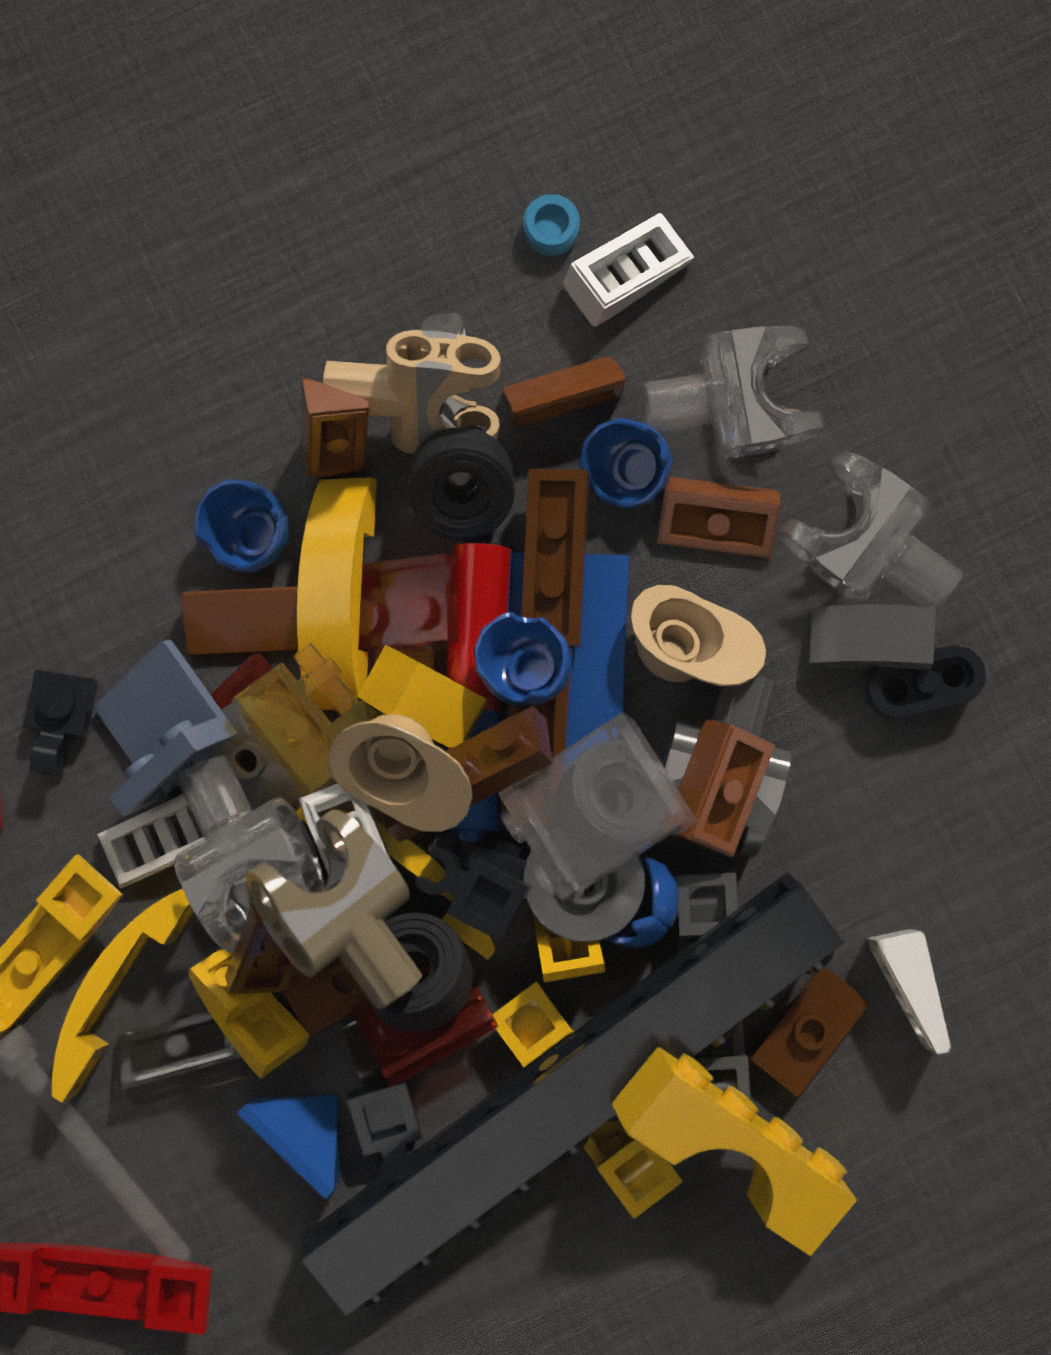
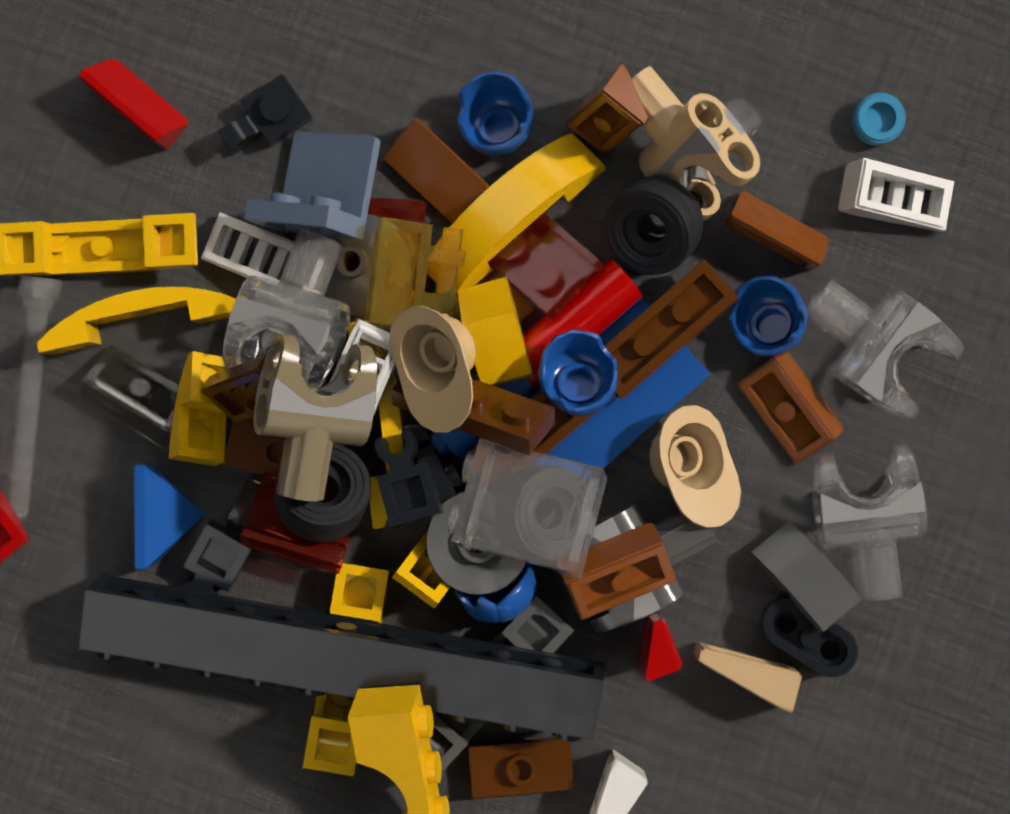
camera: 50 degrees right, 5 degrees up
(817, 816) = (657, 649): none -> red slope
(926, 752) = (765, 678): none -> tan slope

